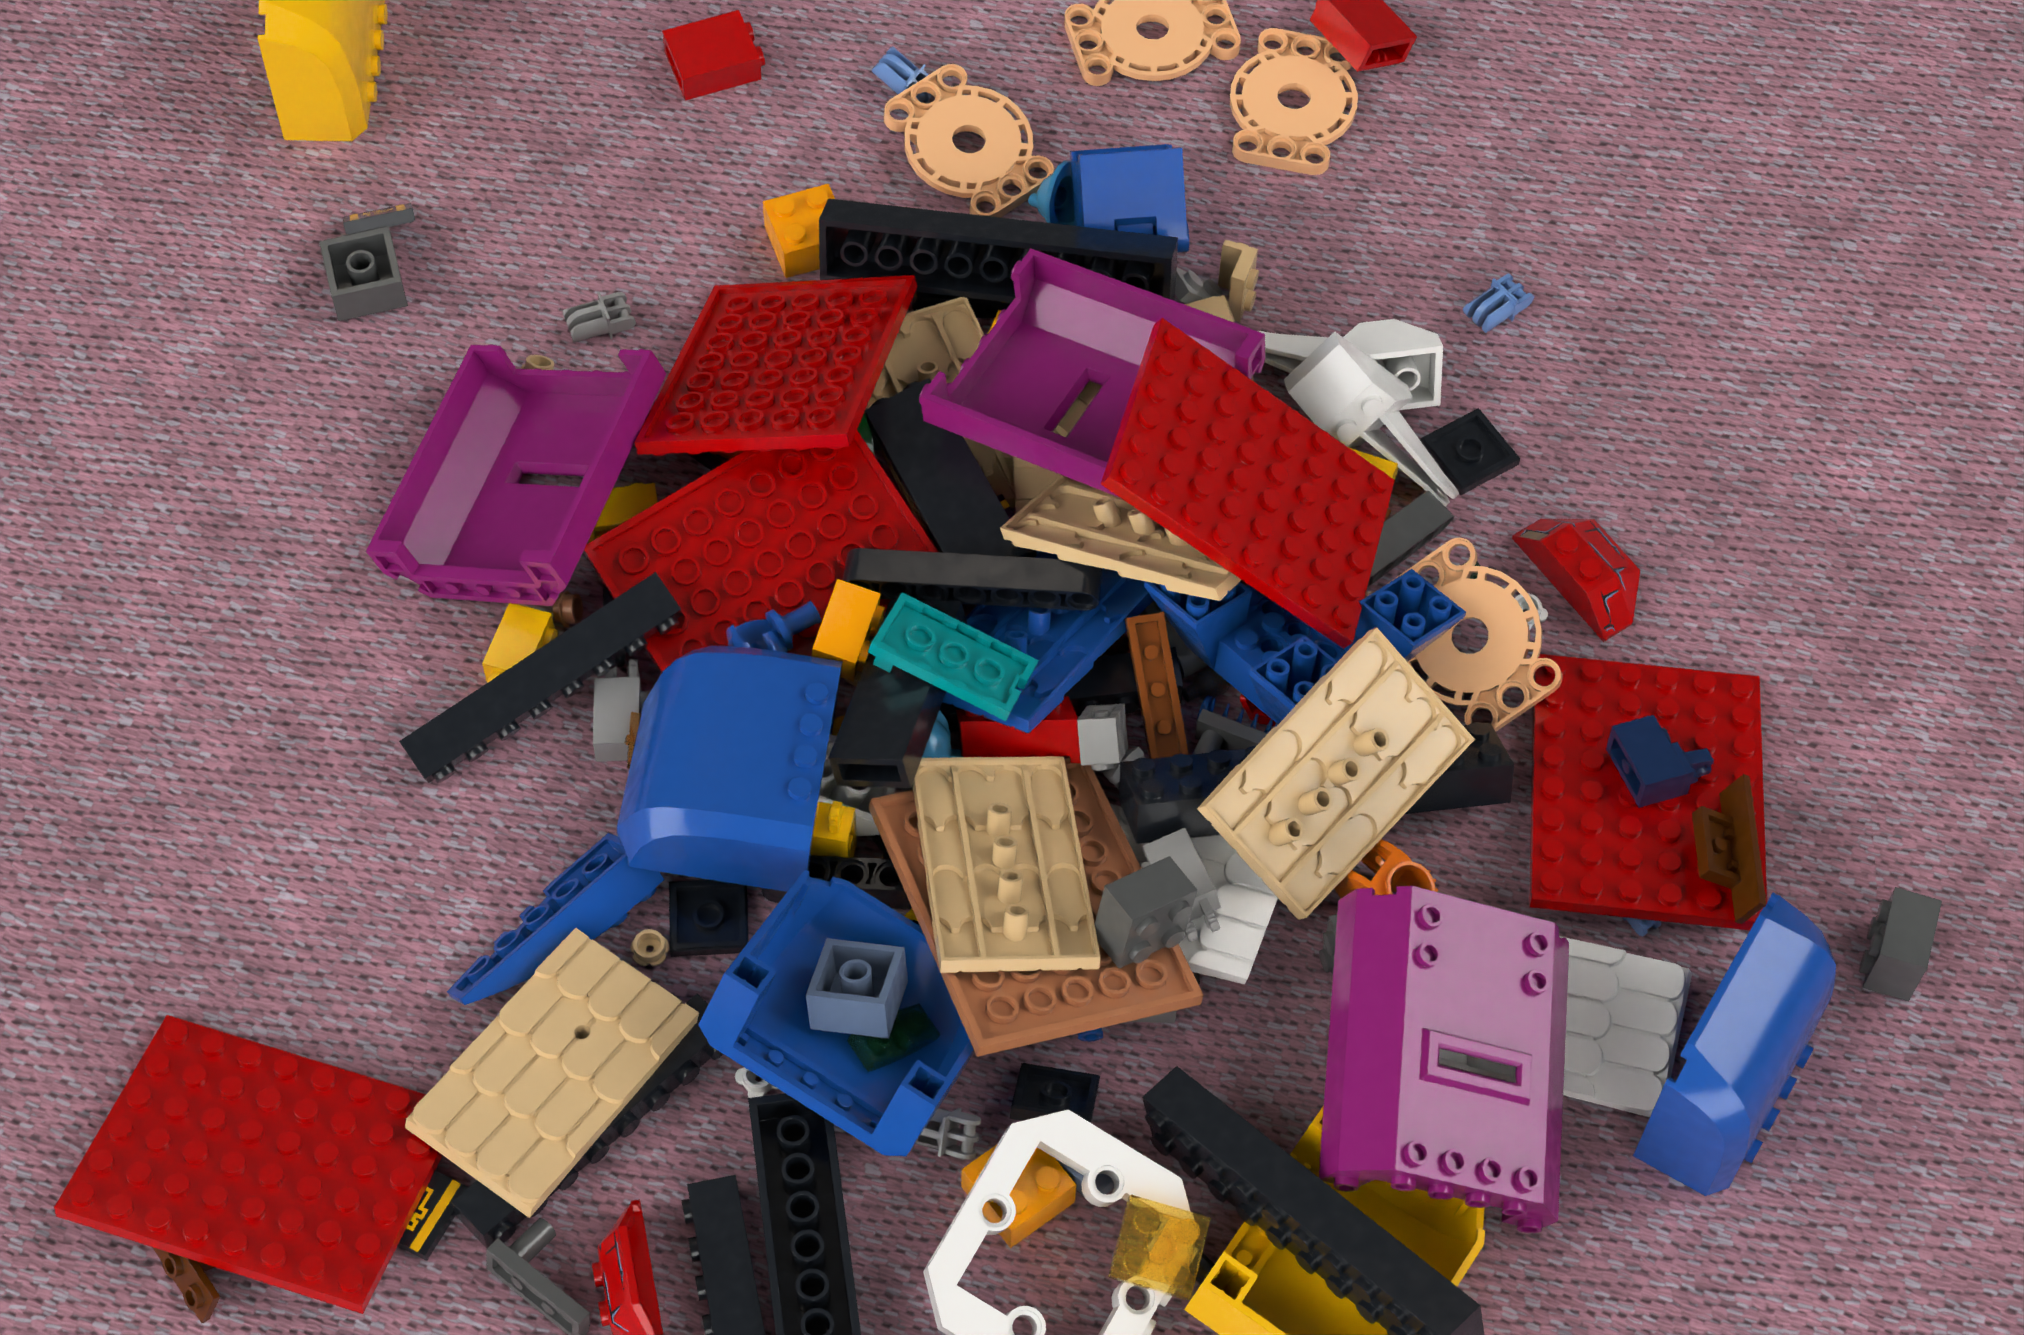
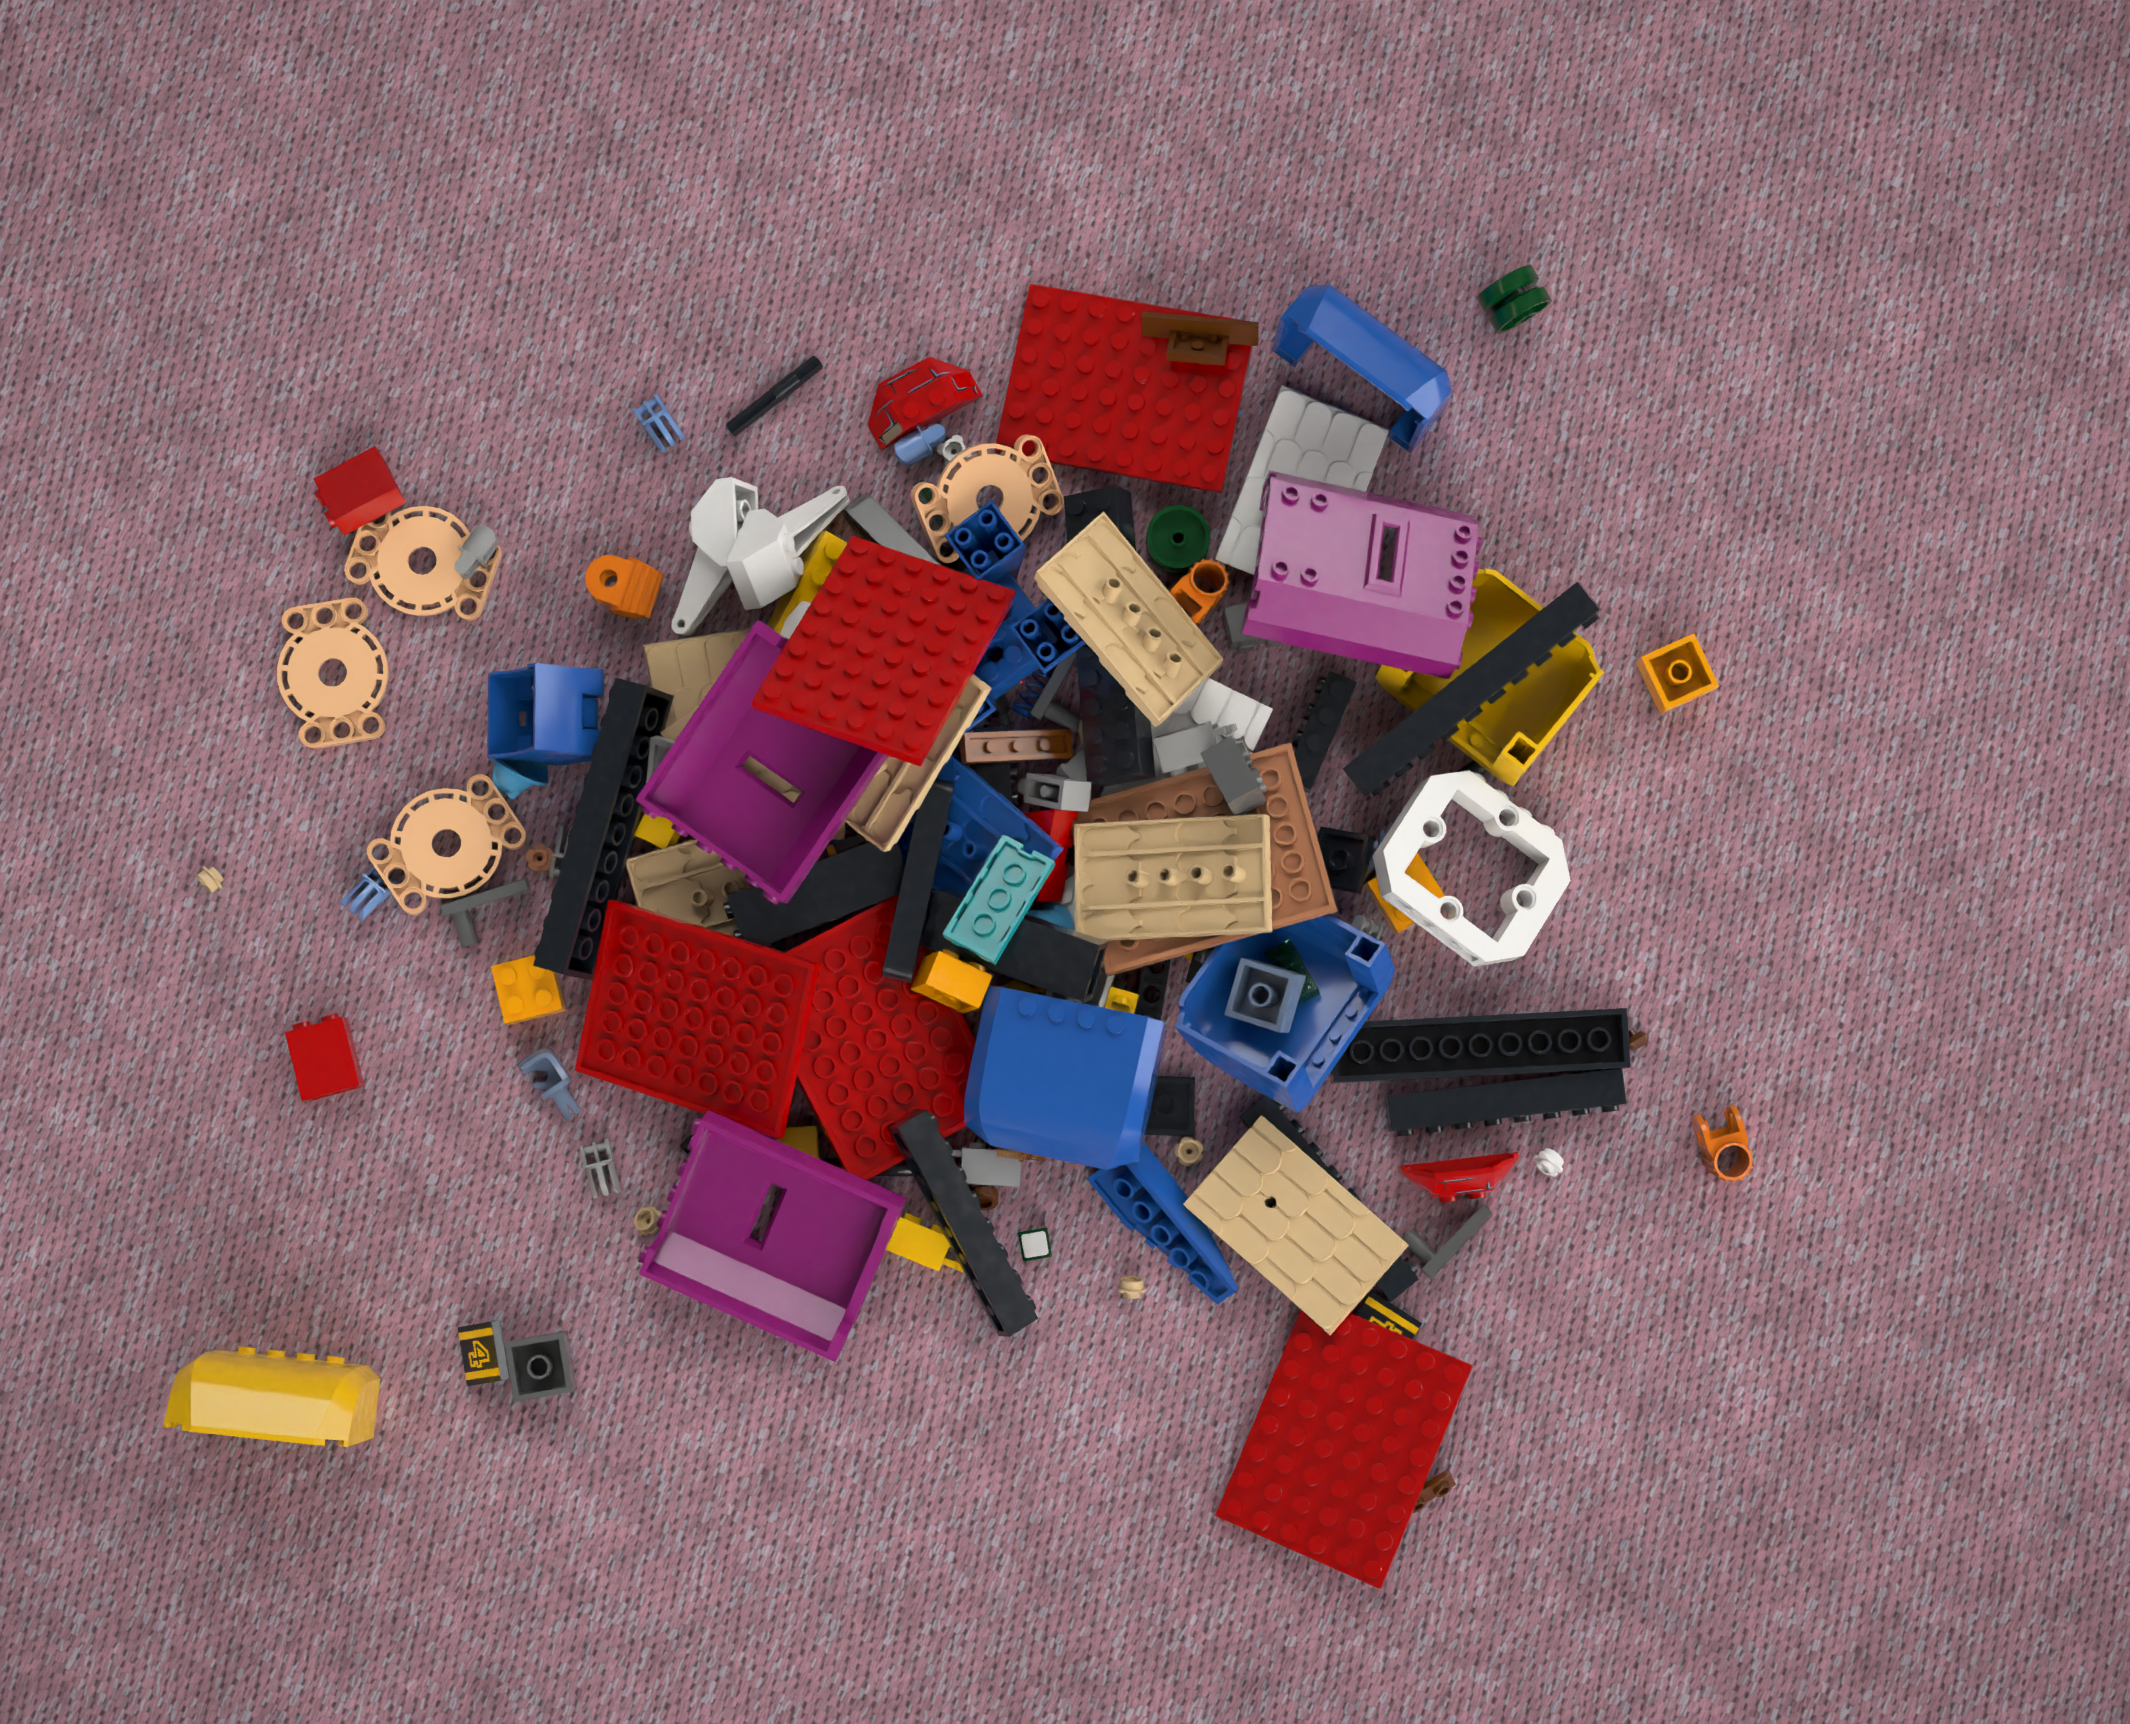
camera: 85 degrees left, 25 degrees up
(469, 893) = (1131, 1286): none -> tan plate
(522, 782) = (1035, 1244): none -> white slope
(578, 713) = (987, 1195): none -> reddish brown tile
(697, 268) = (557, 1081): none -> sand blue piece
(775, 631) = (945, 1044): blue piece -> none
(893, 161) = (459, 908): none -> dark grey piece
(1159, 1247) = (1479, 797): clear yellow plate -> none
(1193, 288) = (629, 666): light grey plate -> none
(1228, 1057) = (1321, 725): none -> black brick
(1239, 276) = (626, 628): tan bracket -> none
(1296, 286) = (635, 585): none -> orange piece
(1310, 134) = (476, 551): none -> light grey arm
(1462, 856) = (1168, 524): none -> dark green wheel
(1470, 451) = (798, 470): black tile -> none
(1527, 569) = (919, 444): none -> medium blue arm
(1557, 418) = (774, 395): none -> black axle
(1651, 764) = (1118, 382): dark blue hinge -> none
(1878, 1256) = (1514, 299): none -> dark green wheel
(1900, 943) = (1274, 229): dark grey brick -> none

